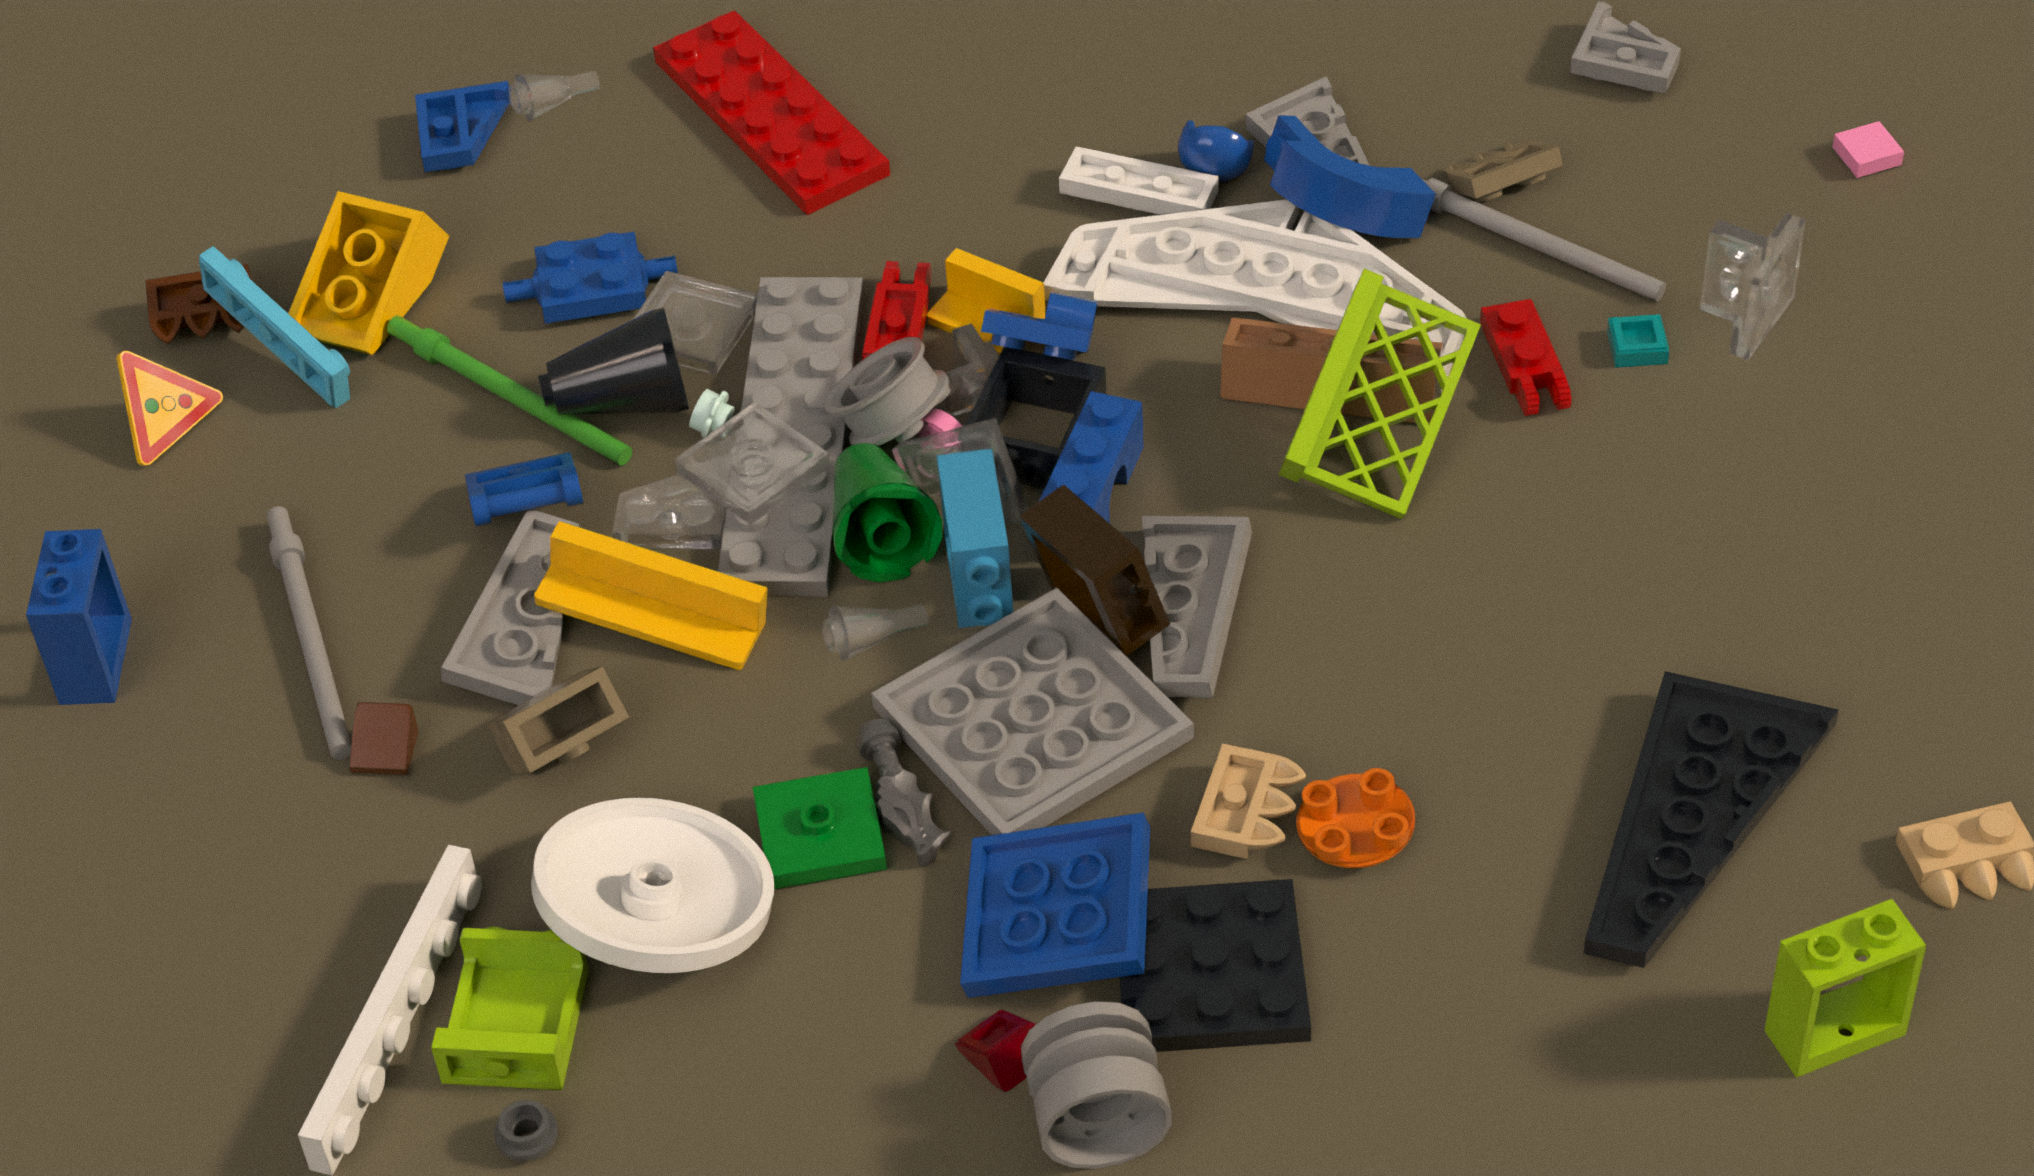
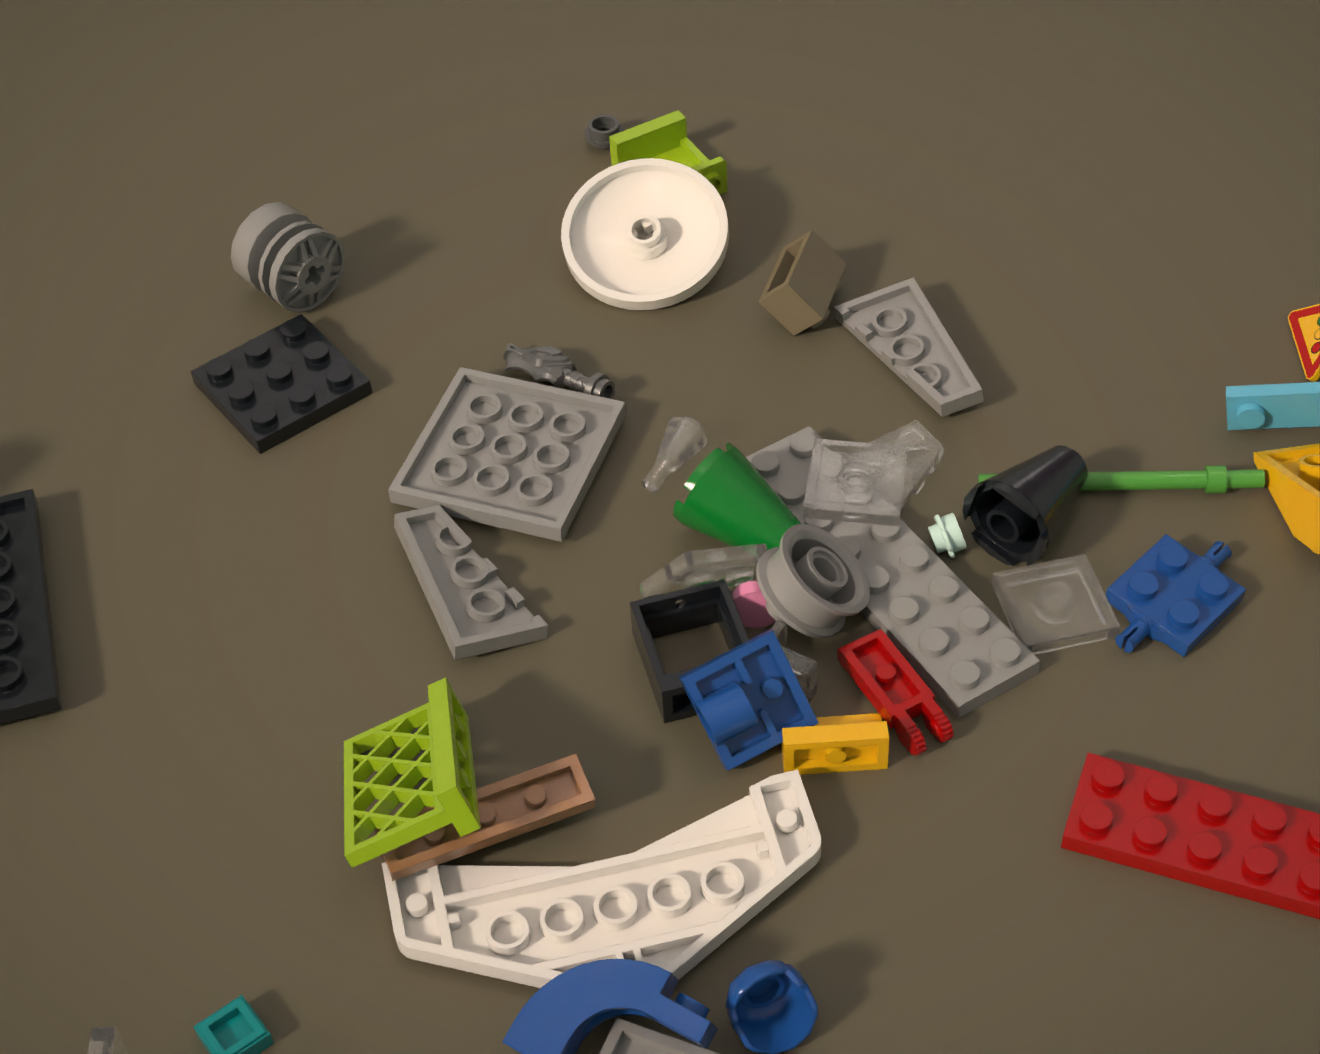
camera: 145 degrees right, 0 degrees up
(79, 616) = (1153, 209): blue window -> none
(289, 557) = (1110, 306): light grey bar -> none
(383, 738) = (910, 248): reddish brown slope -> none
(386, 1017) = (736, 139): white plate -> none
(523, 487) = (1016, 414): blue plate -> none
(652, 596) = (835, 386): yellow panel -> none
(819, 827) = (593, 333): green plate -> none
(975, 537) = (637, 506): dark azure window -> none
(996, 1048) = (378, 287): dark red slope -> none
(1056, 906) = (390, 343): blue plate -> none
(1095, 569) = (511, 543): dark brown window -> none
(1100, 450) = (611, 626): blue arch -> none
(1136, 183) = (820, 934): white plate -> none
(1241, 799) = (320, 469): tan plate -> none
(1355, 819) = (237, 499): orange dish -> none
(1525, 354) = (331, 957): red hinge -> none

